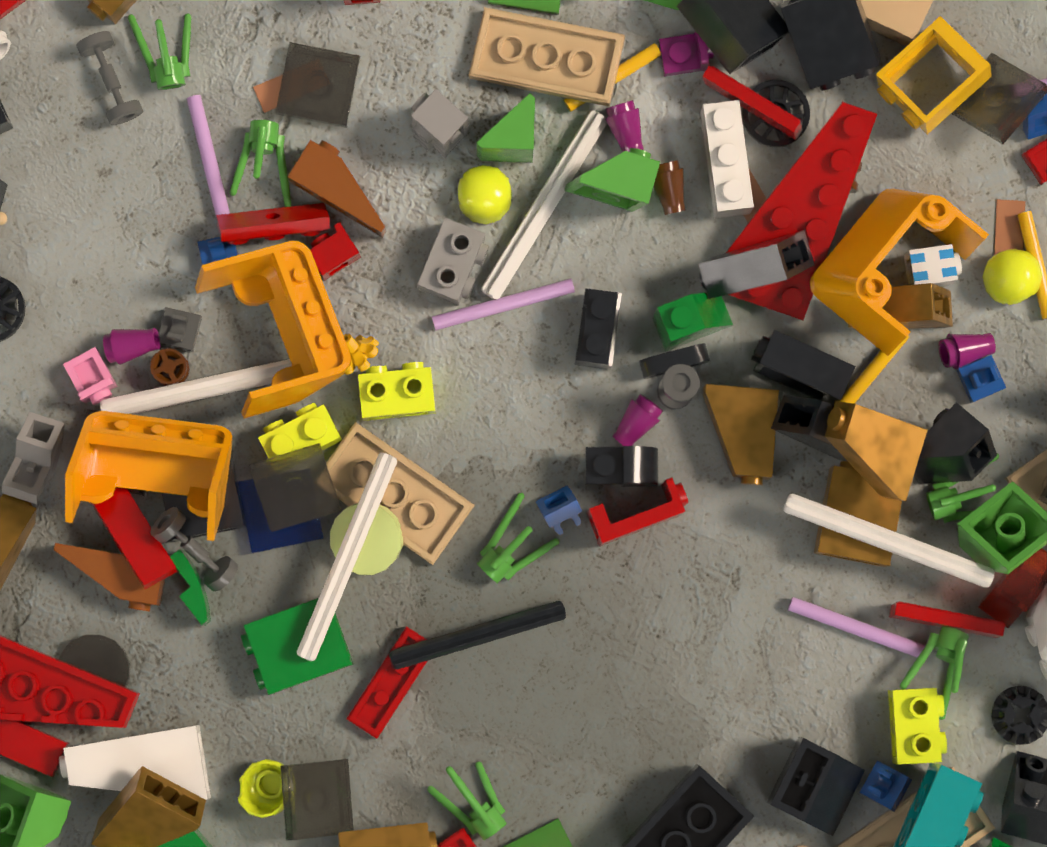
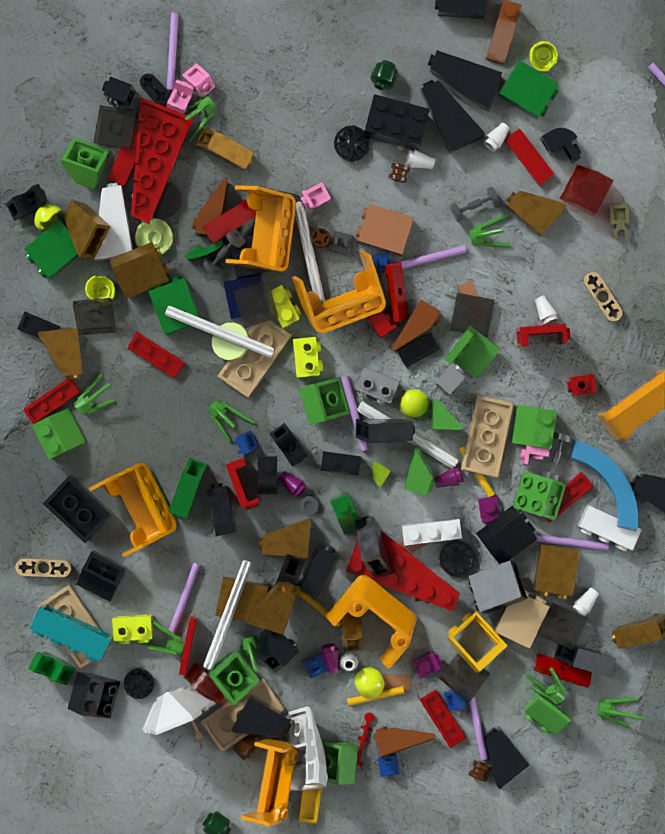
camera: 95 degrees right, 5 degrees up
(24, 184) = (419, 160): none -> white cone
(35, 458) = (271, 167): light grey brick -> none
(48, 219) = (399, 172): none -> reddish brown wheel
(129, 344) = (332, 215): magenta cone -> none
(155, 246) = (384, 229): none -> nougat brick
(167, 686) = (156, 232): none -> yellowish green tile
(227, 710) = (140, 269): none -> pearl gold brick
(263, 138) = (441, 285): bright green plant -> none
(360, 350) = (329, 337): yellow plant -> none
(384, 185) = (418, 350): none -> black tile
(388, 81) = (473, 352): none -> bright green bracket
(477, 635) = (180, 400): black axle -> none
(480, 359) = (324, 400): none -> bright green slope
(535, 244) = (384, 430): none -> black slope
(563, 426) = (288, 444): none -> black brick
(617, 257) = (379, 473): none -> lime tile
(647, 619) = (187, 488): none -> green slope
(660, 363) = (324, 503): black beam -> none
(670, 187) = (417, 501): reddish brown cone -> none
(677, 704) = (143, 502): none -> light orange windscreen
(688, 554) = (221, 510): none -> black slope
(753, 102) = (461, 545): red tile -> none
(885, 786) = (101, 612): blue tile -> none
(933, 265) = (374, 640): white brick -> none
(968, 320) = (348, 657): none -> white cone
(975, 168) = (427, 664): none -> magenta bracket

